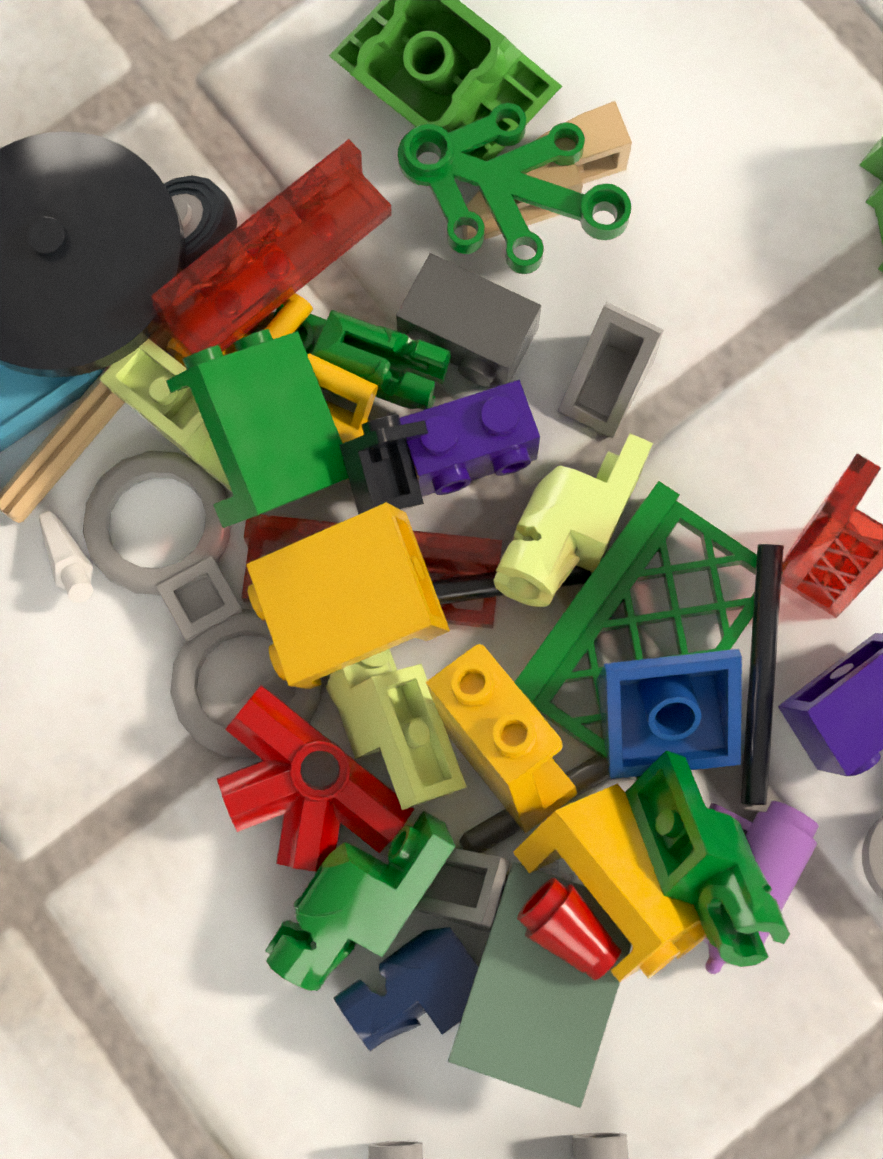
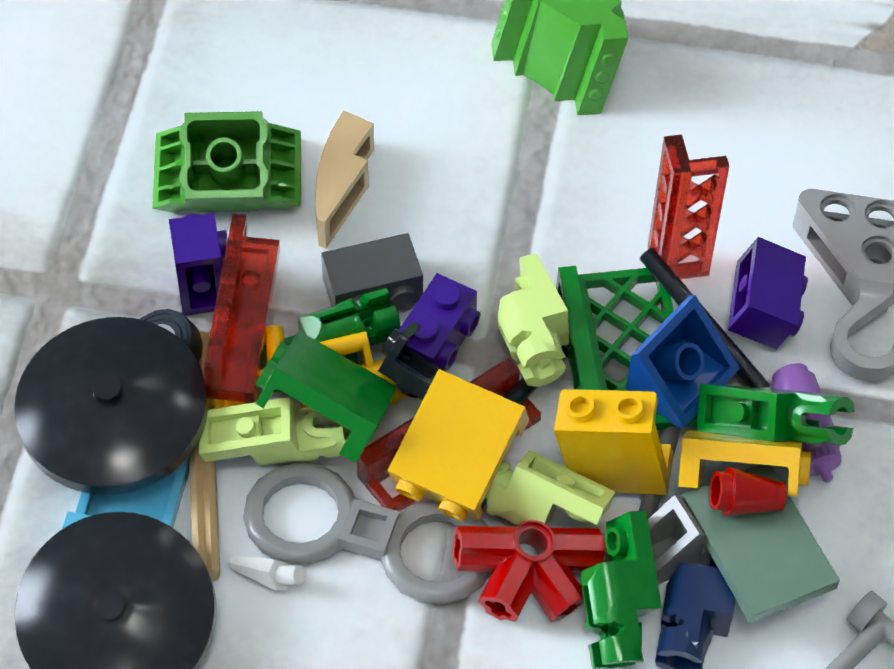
camera: 45 degrees left, 20 degrees down
(288, 145) = (198, 260): none -> dark purple brick
(505, 180) = (331, 187): green plant -> none
(611, 370) = (473, 239): light grey slope -> none

